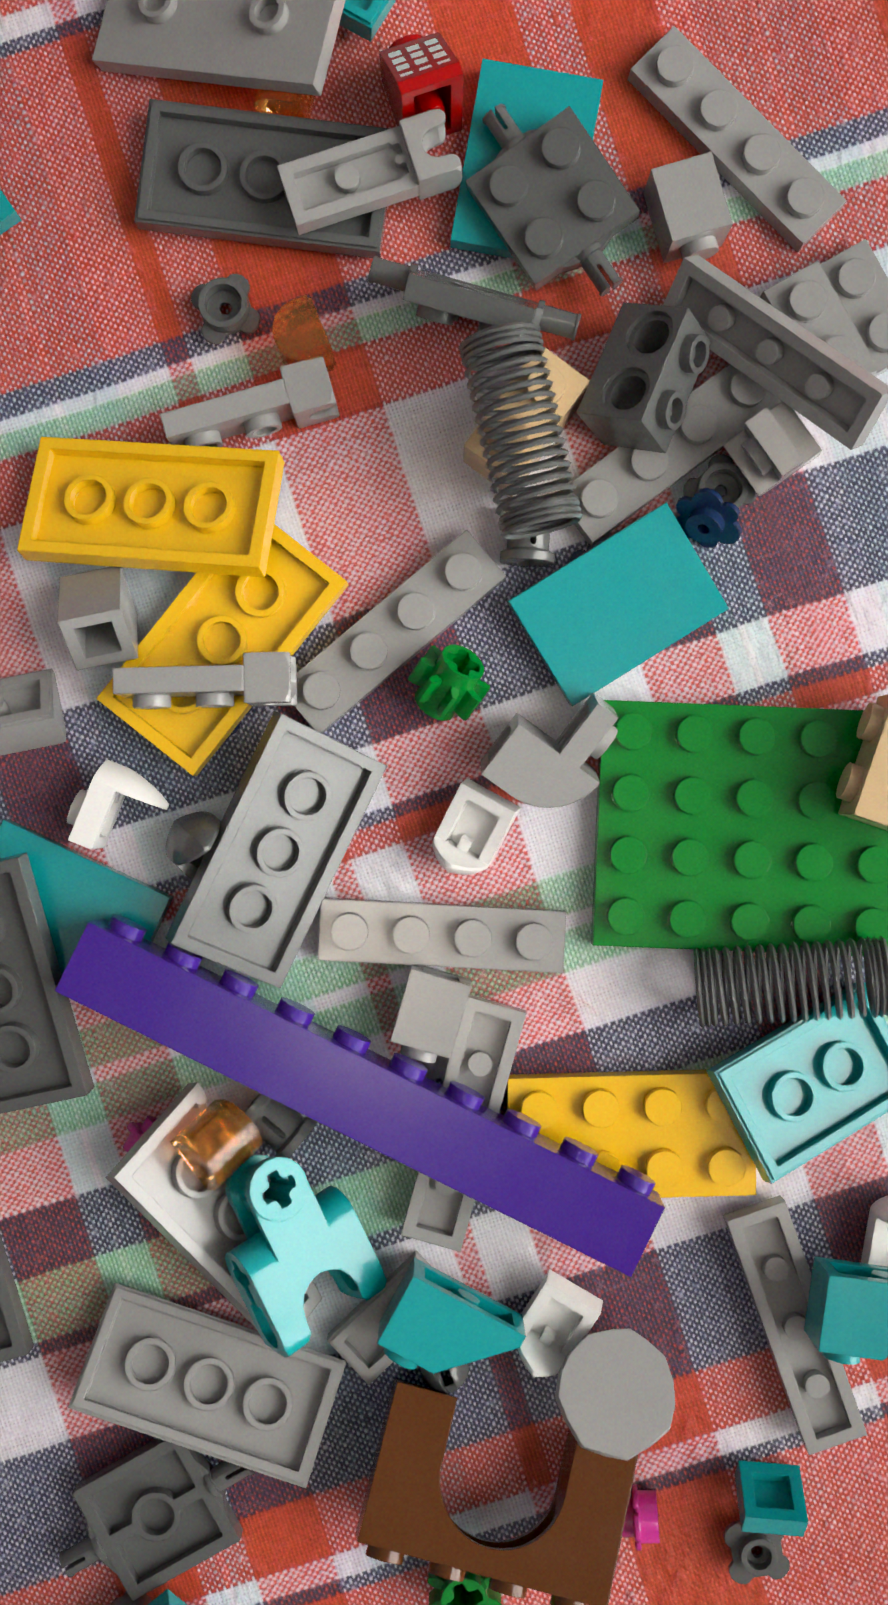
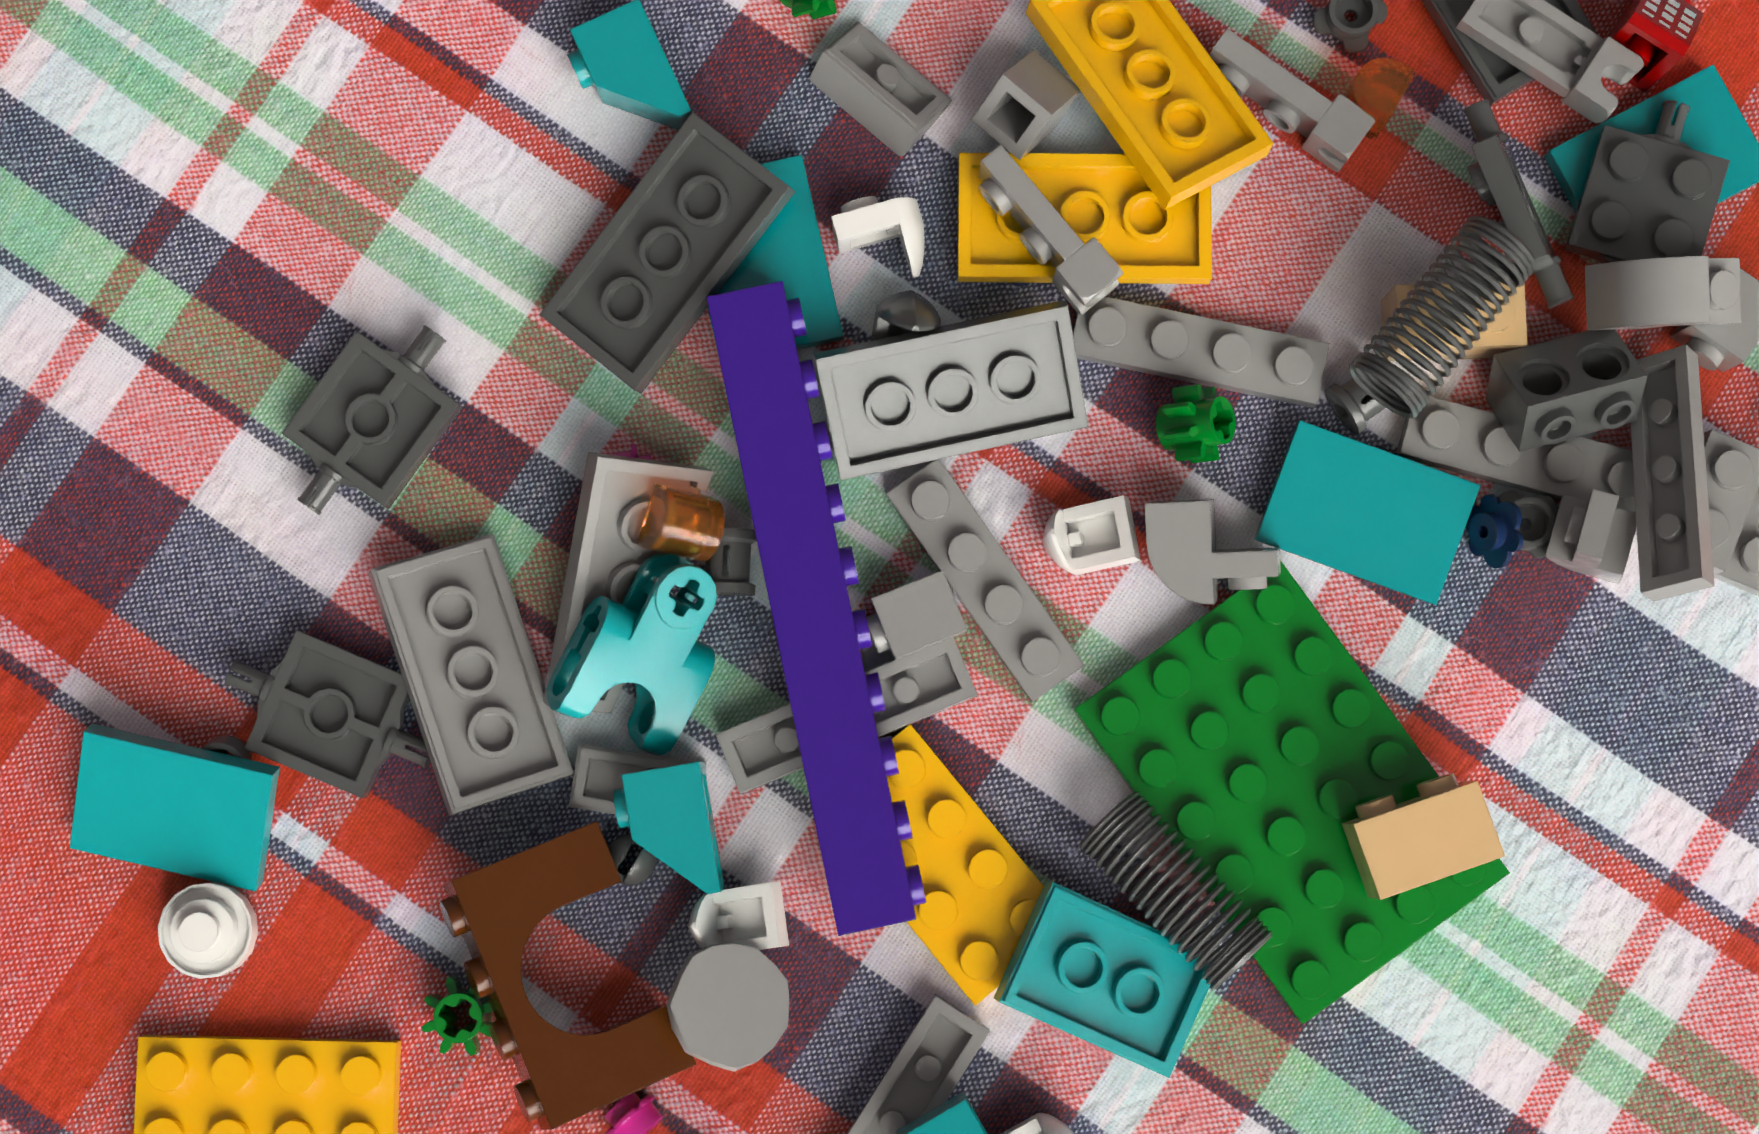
camera: 50 degrees right, 5 degrees down
(634, 243) = (1663, 293): none -> light grey brick

